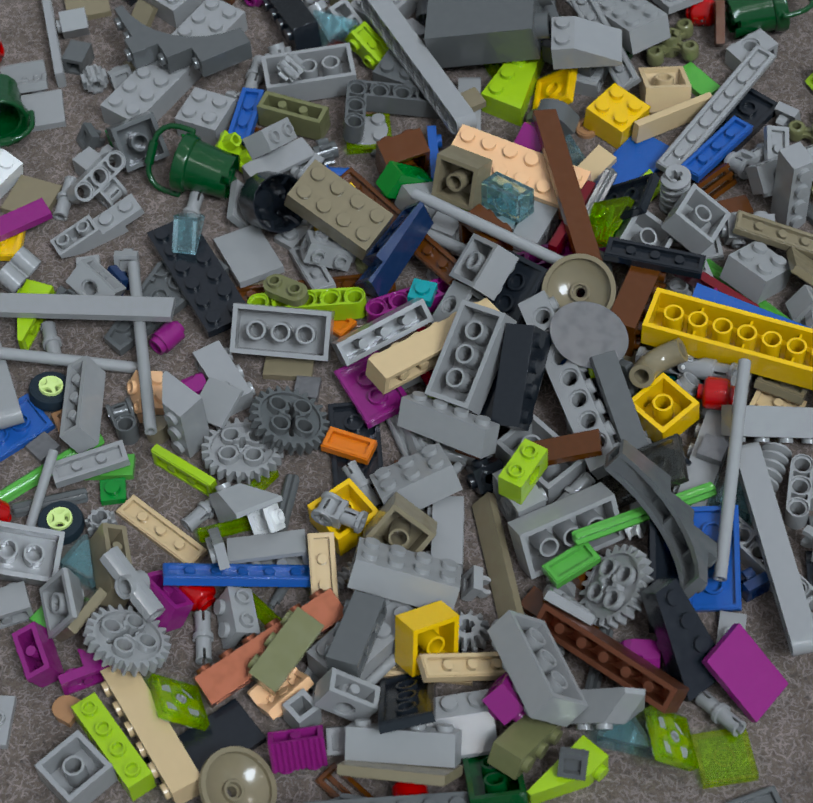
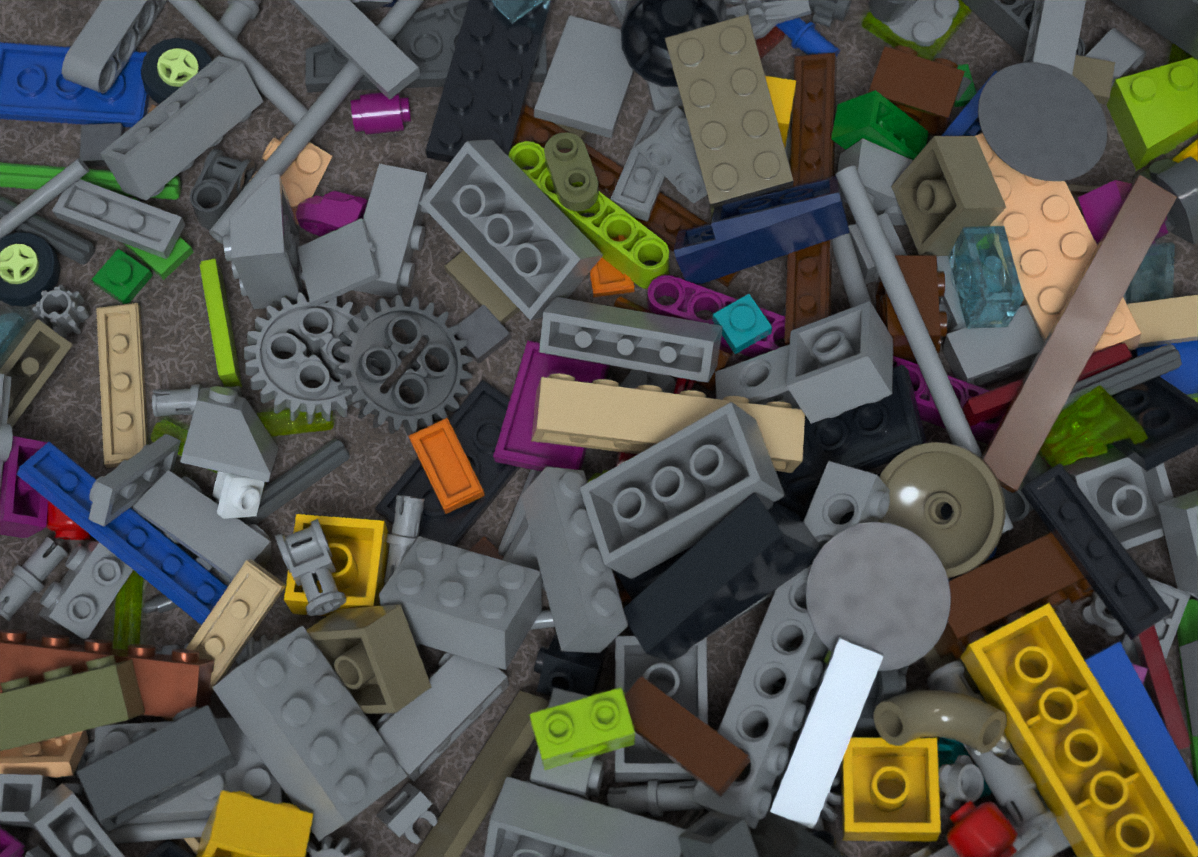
camera: 40 degrees right, 15 degrees up
(472, 122) = (1042, 121): none -> flat silver sticker

